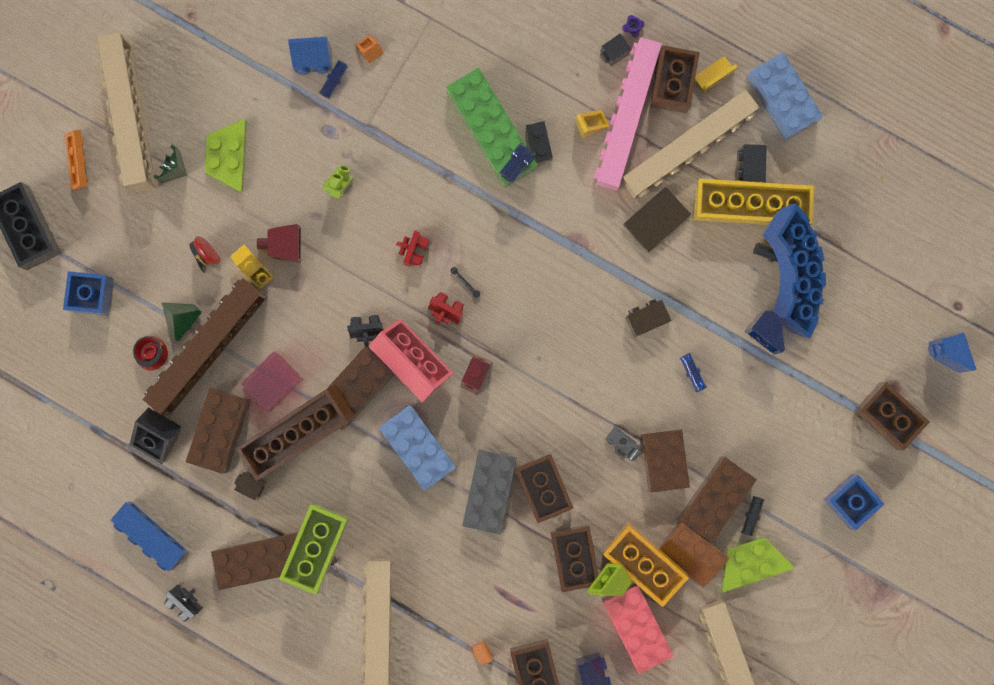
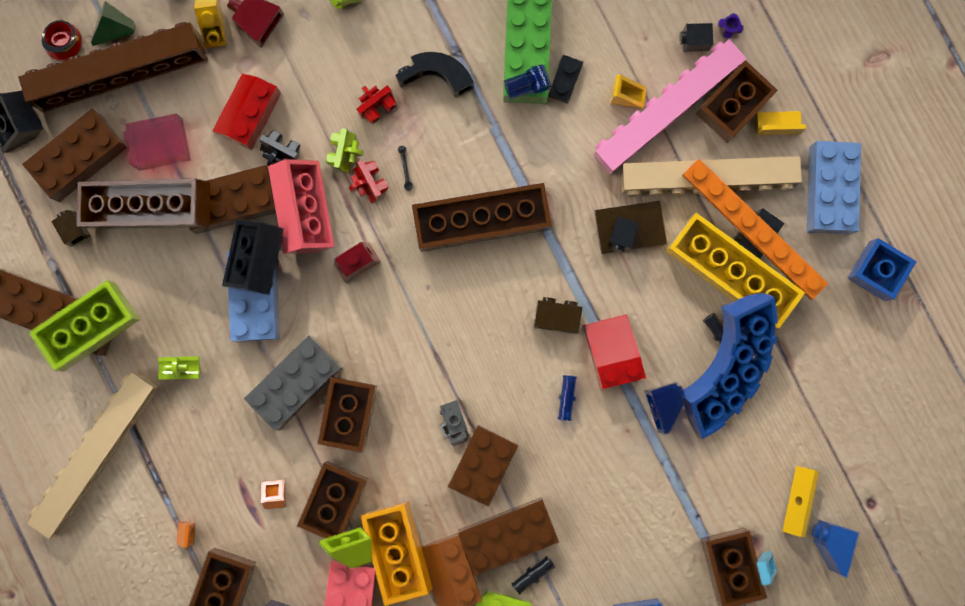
camera: 30 degrees right, 0 degrees up
(321, 315) = (247, 110): none -> red slope
(398, 535) = (179, 367): none -> lime hips
(402, 419) = (253, 257): none -> black slope
(415, 296) = (346, 150): none -> lime hips
(440, 191) = (437, 65): none -> black arch
(527, 582) = (273, 494): none -> orange slope
(546, 282) = (481, 217): none -> reddish brown brick
(656, 228) = (623, 234): none -> black brick
(705, 317) = (614, 352): none -> slope
(748, 163) = (755, 229): none -> orange plate
(857, 133) = (881, 269): none -> blue brick
(907, 337) = (800, 501): none -> yellow tile
(915, 400) = (766, 567): none -> medium azure tile

